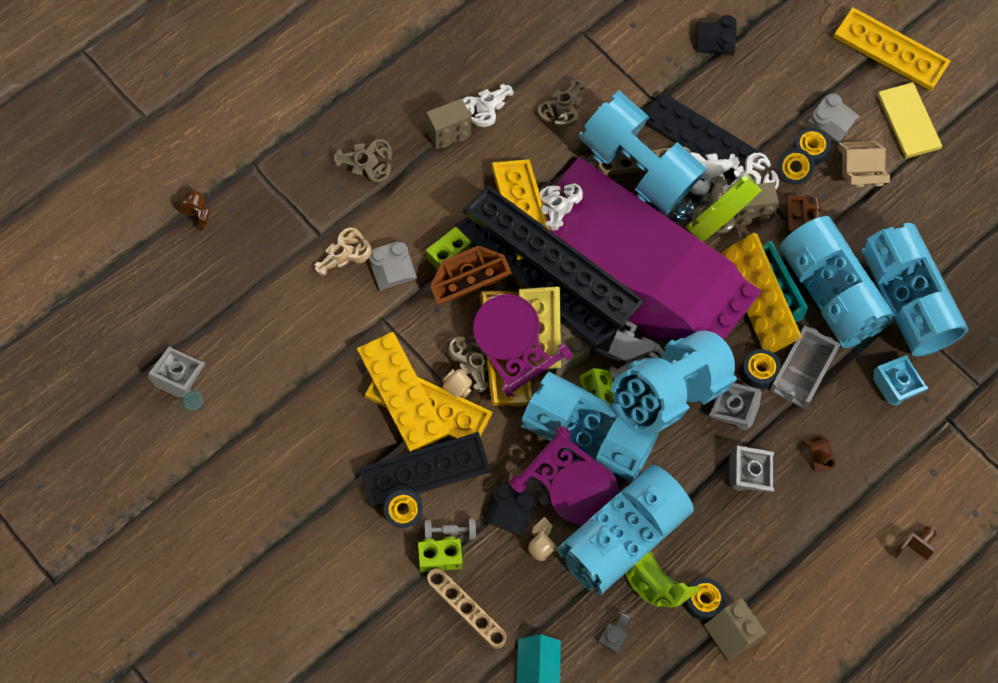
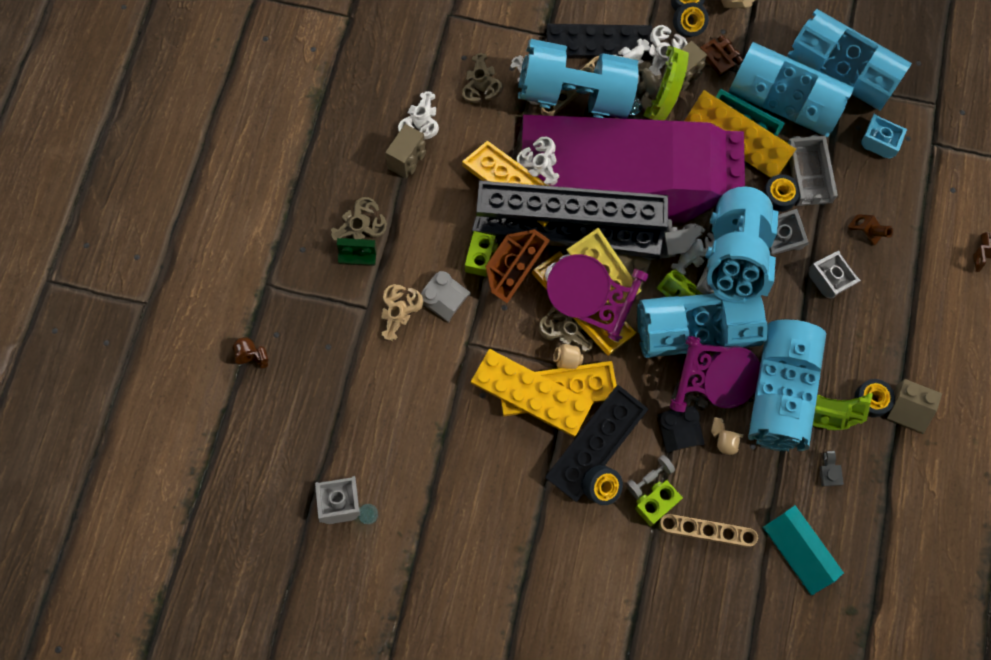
camera: 35 degrees left, 5 degrees up
(345, 182) = (357, 251): none -> dark green bracket

